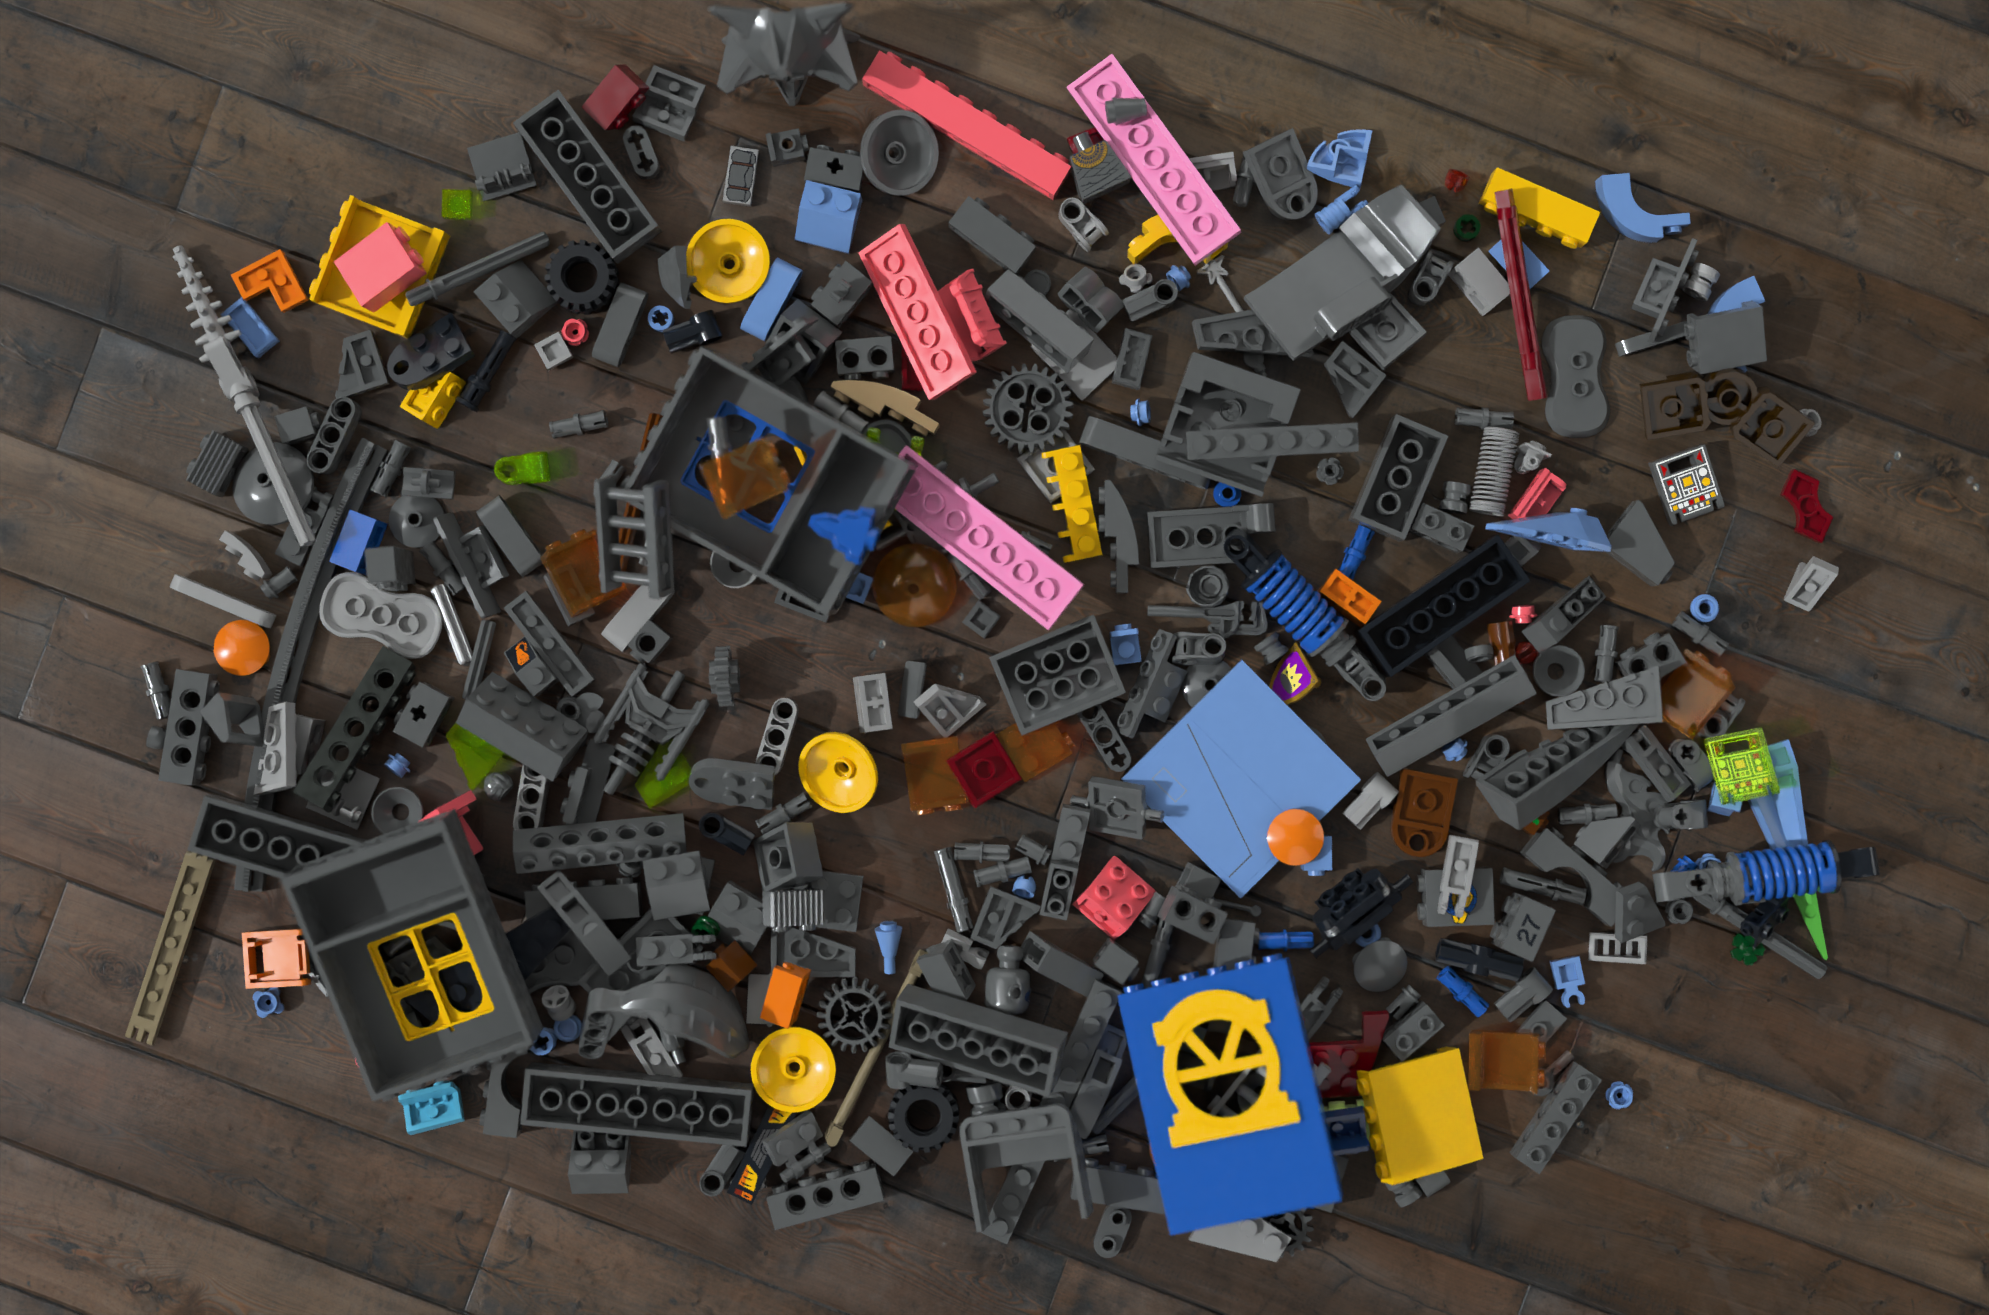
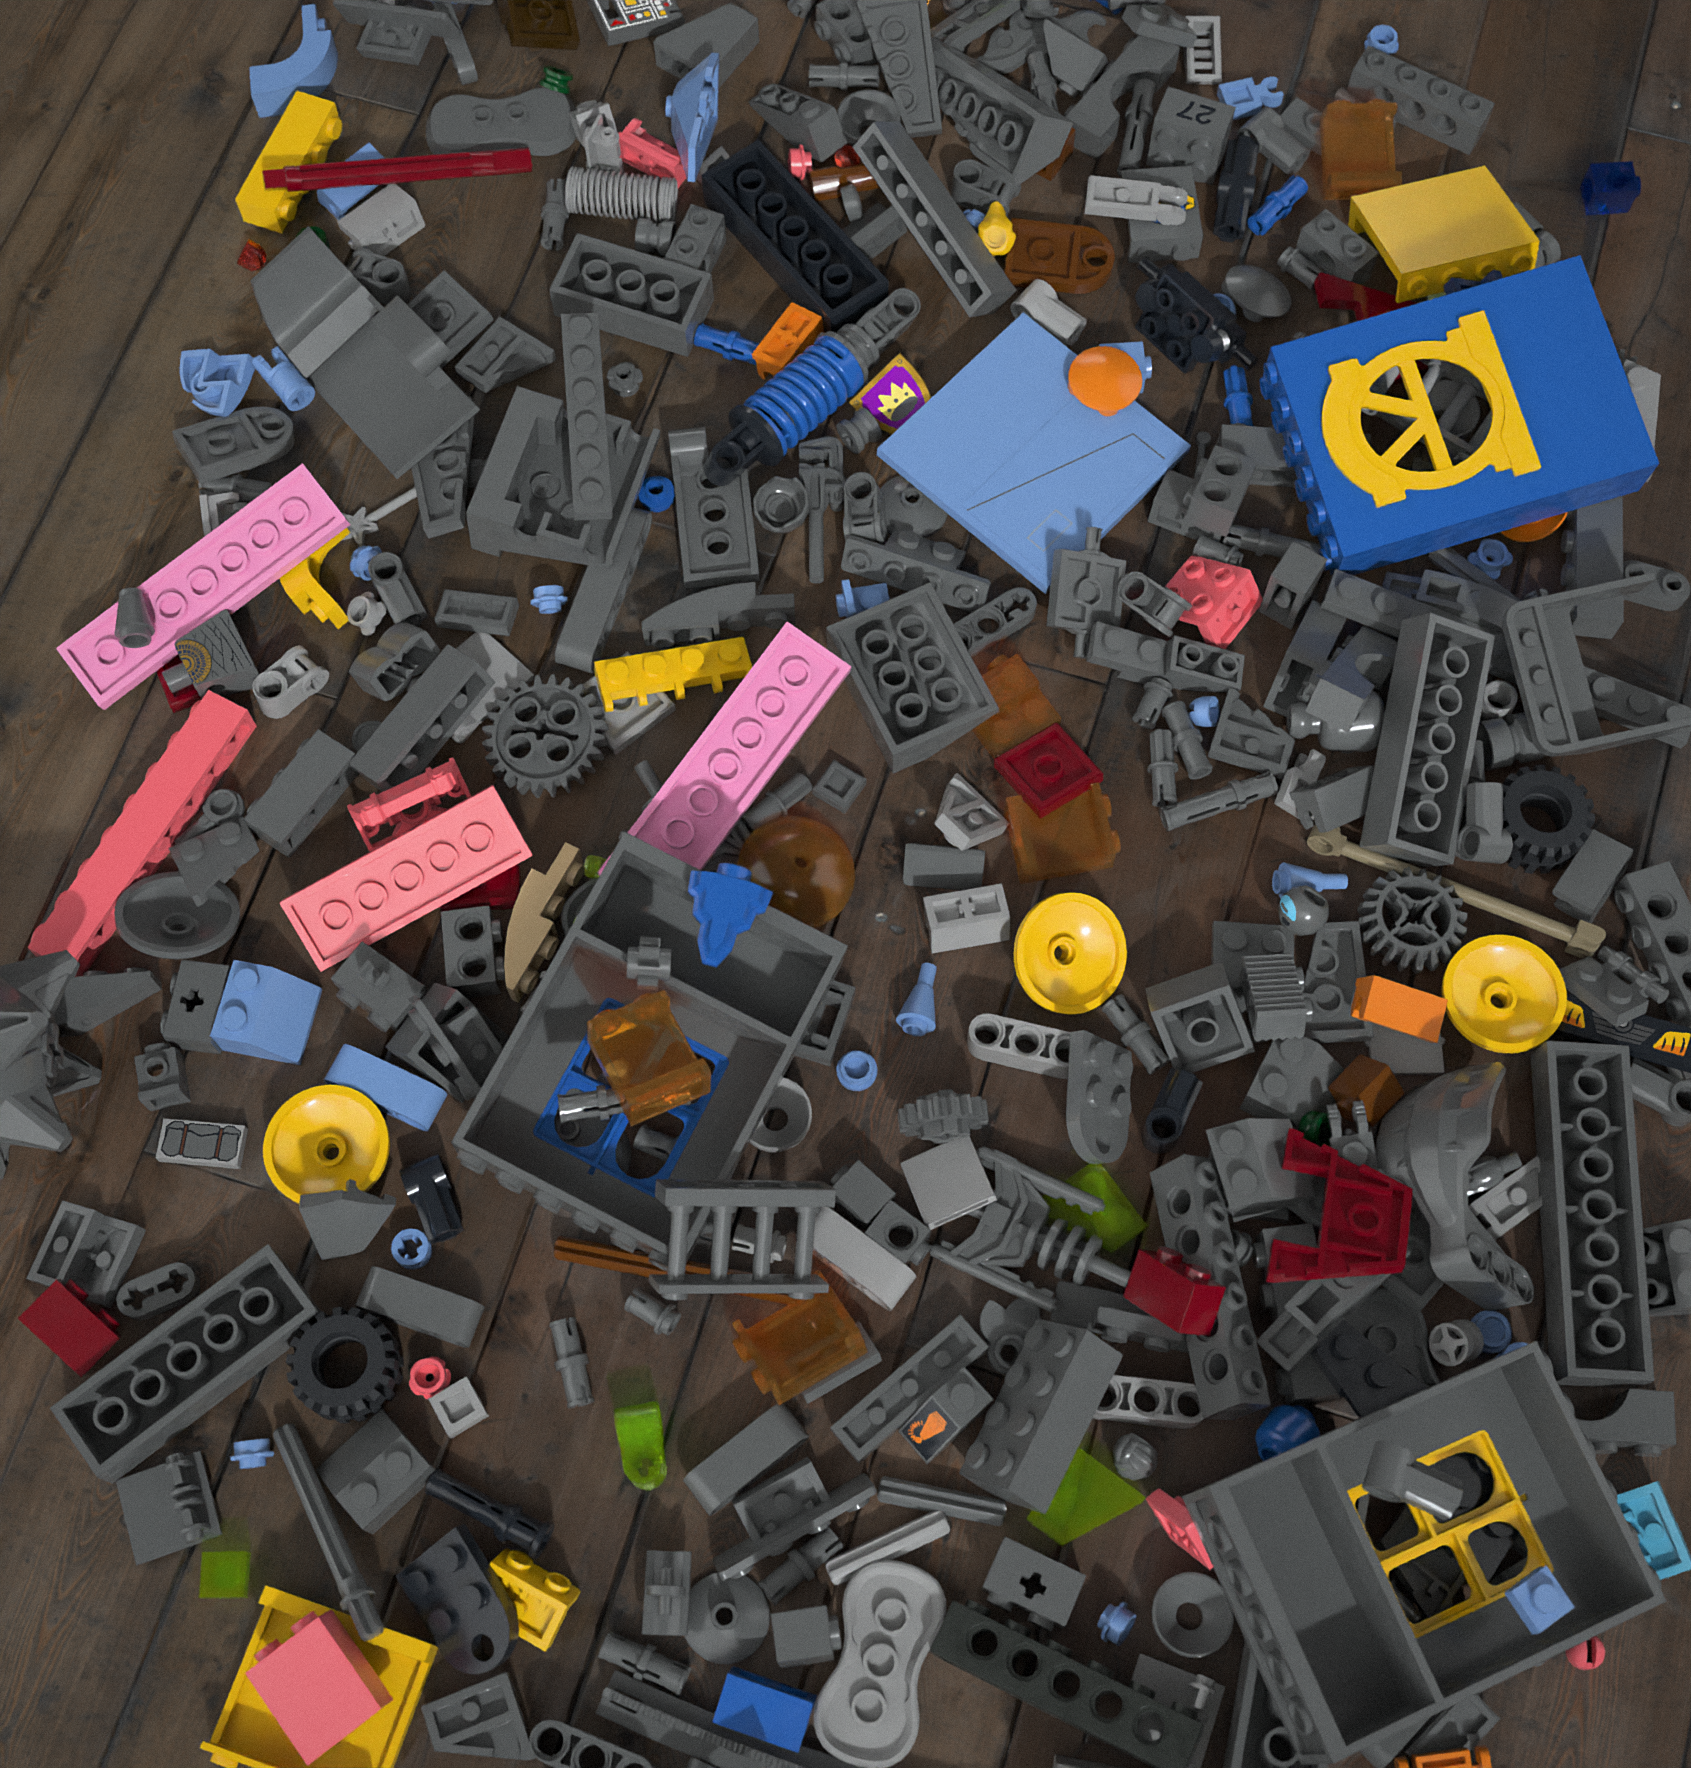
camera: 90 degrees left, 20 degrees down
(371, 1019) = (1539, 1599): none -> medium blue plate
(443, 940) = (1399, 1478): none -> dark grey piece
(505, 885) = (1284, 1429): none -> blue head
(532, 218) = (252, 1453): none -> medium blue plate
(592, 818) = (1174, 1291): none -> dark red brick
(628, 945) = (1361, 1219): none -> dark red wing
(679, 618) = (860, 1193): none -> dark grey brick
(683, 677) = (948, 1182): none -> light grey piece
(768, 620) = (856, 1070): none -> medium blue plate
(809, 666) = (918, 1011): none -> medium blue cone
(810, 479) = (648, 963): none -> dark grey gear
(848, 101) = (100, 996): none -> dark grey slope
(860, 937) = (1303, 910): none -> dark grey piece
(945, 174) = (214, 856): none -> dark grey wing
(985, 179) = (219, 809): none -> dark grey plate
(1009, 981) = (1350, 676): none -> dark grey arch
(1102, 859) = (1156, 605): none -> dark grey piece
(1131, 1113) = (1495, 550): none -> medium blue plate
(1443, 764) = (996, 230): none -> yellow animal
(1464, 1245) = (1610, 188): none -> clear blue brick
(1570, 447) = (586, 116): none -> light grey brick
(1613, 420) = (556, 79): none -> dark green bush

